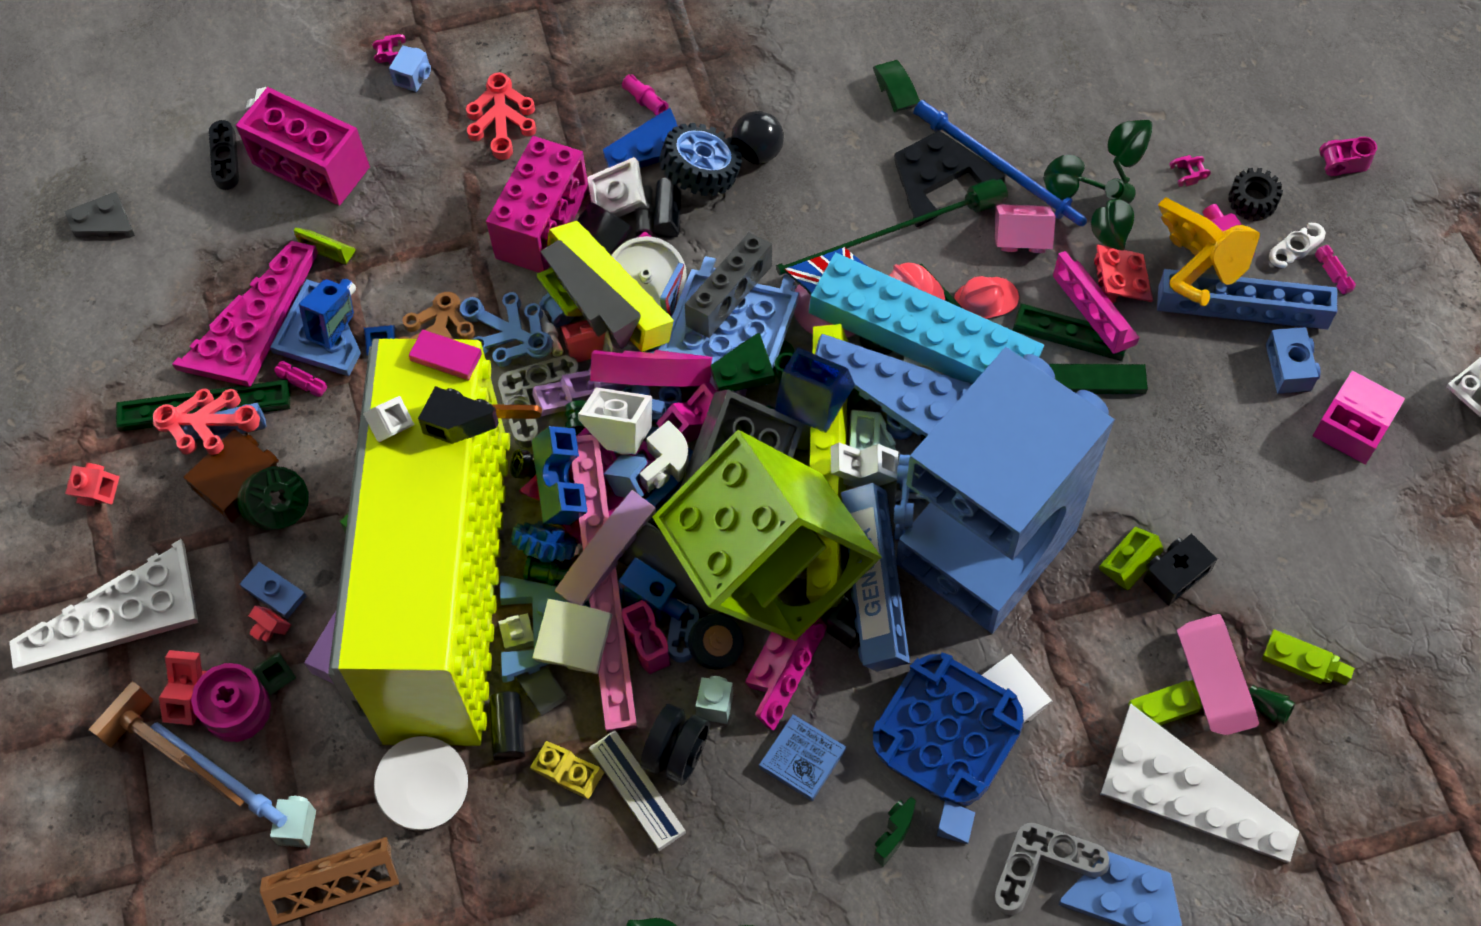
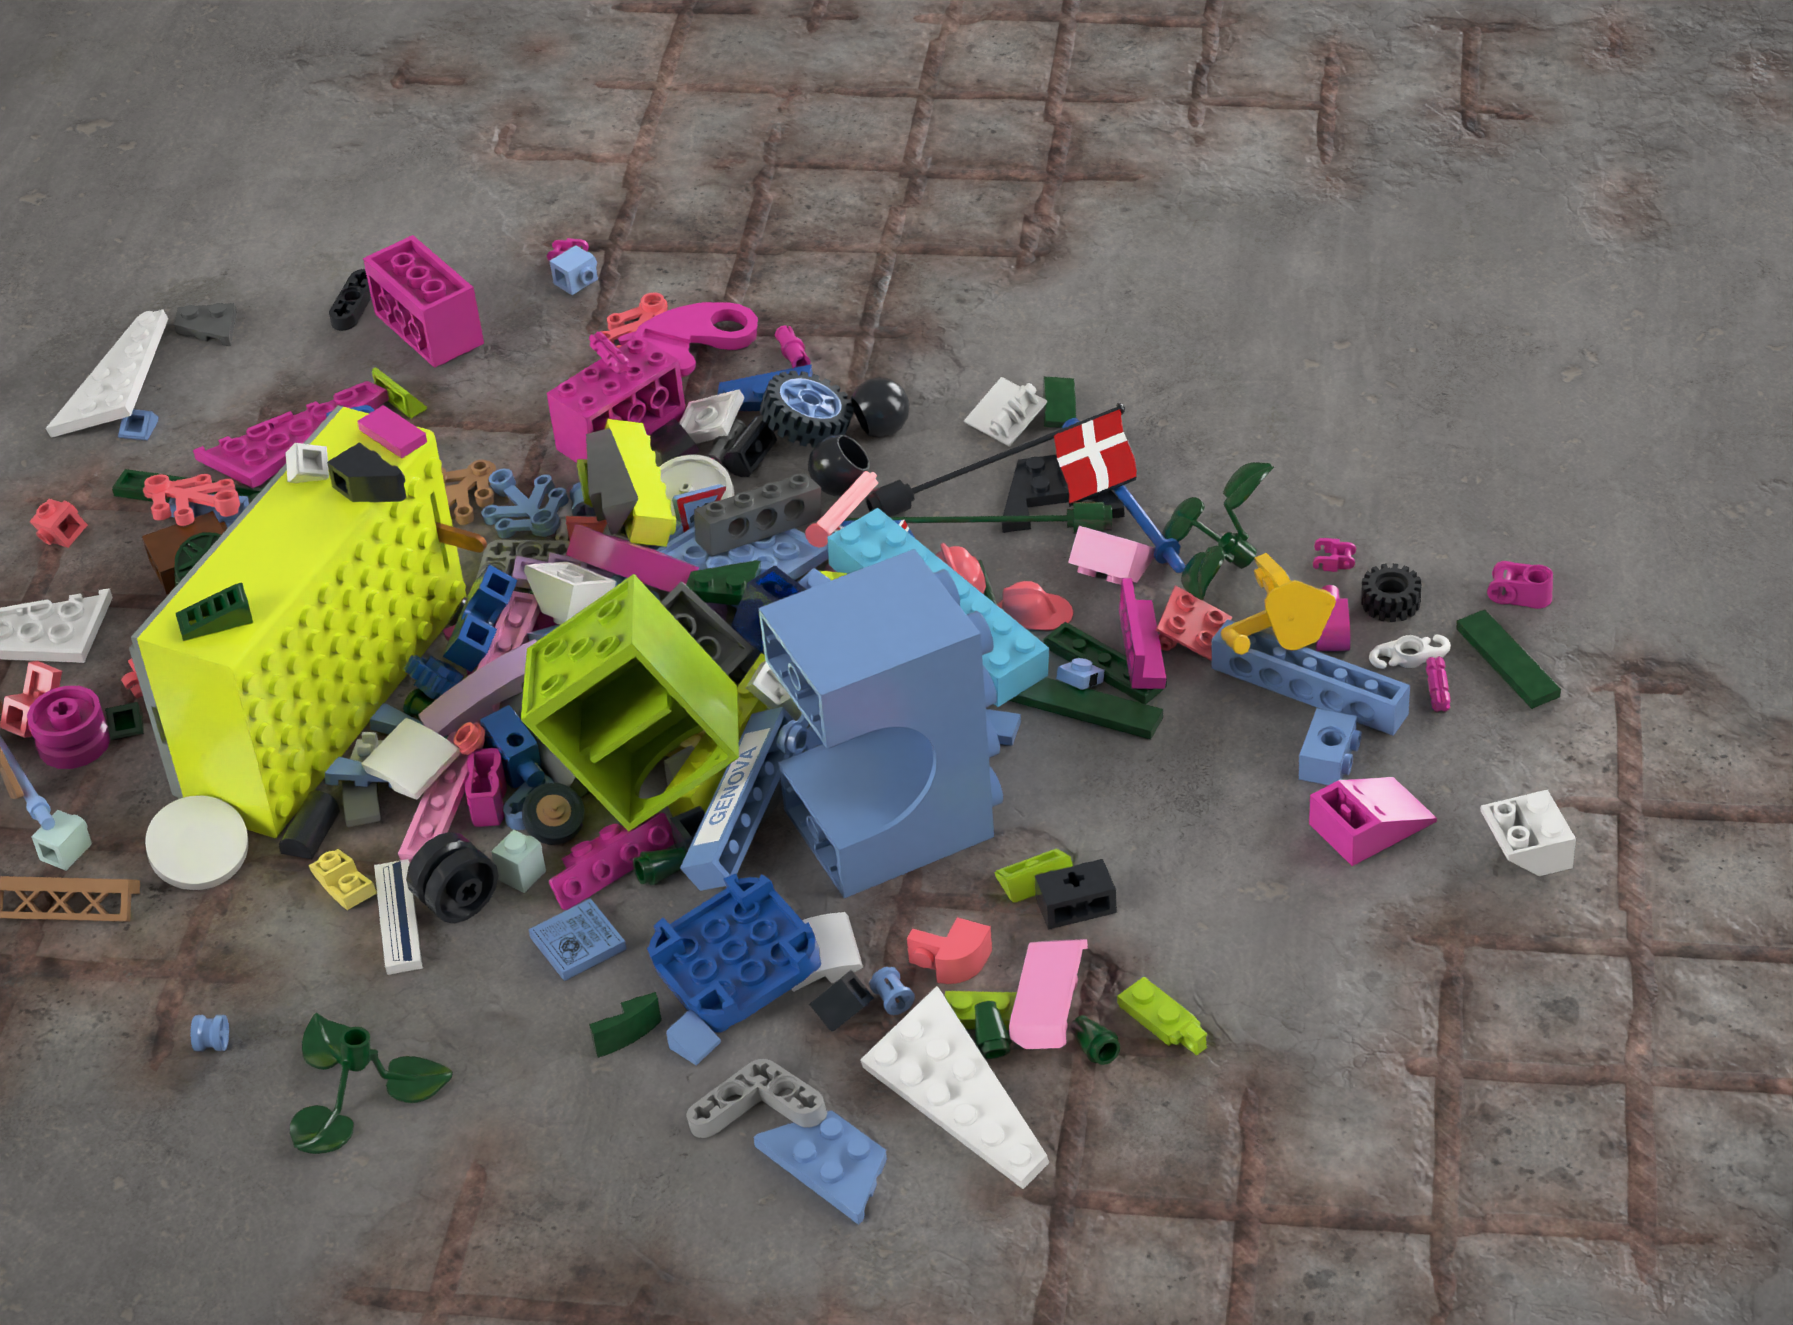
camera: 25 degrees right, 20 degrees down
(52, 312) = (116, 381): none -> white wing
(98, 350) = (138, 425): none -> medium blue slope
(393, 610) = (224, 611): none -> dark green slope
(523, 165) = (609, 352): none -> dark pink axle
(544, 99) = (694, 324): none -> dark pink animal
(615, 600) = (469, 738): none -> coral plate
(759, 208) = (837, 463): none -> black helmet
(792, 288) = (818, 532): none -> axle
(830, 660) = (658, 864): none -> dark green cone
(859, 108) = (1006, 410): none -> white hinge
(954, 132) = (1089, 454): none -> flag
(1055, 741) = (841, 1001): none -> black panel
(1063, 352) = (1080, 673): none -> light blue plate
(1089, 716) = (890, 991): none -> medium blue bush
(1120, 664) = (954, 957): none -> coral brick
(1191, 728) = (990, 1031): none -> dark green cone
(1372, 228) = (1508, 659): none -> dark green tile

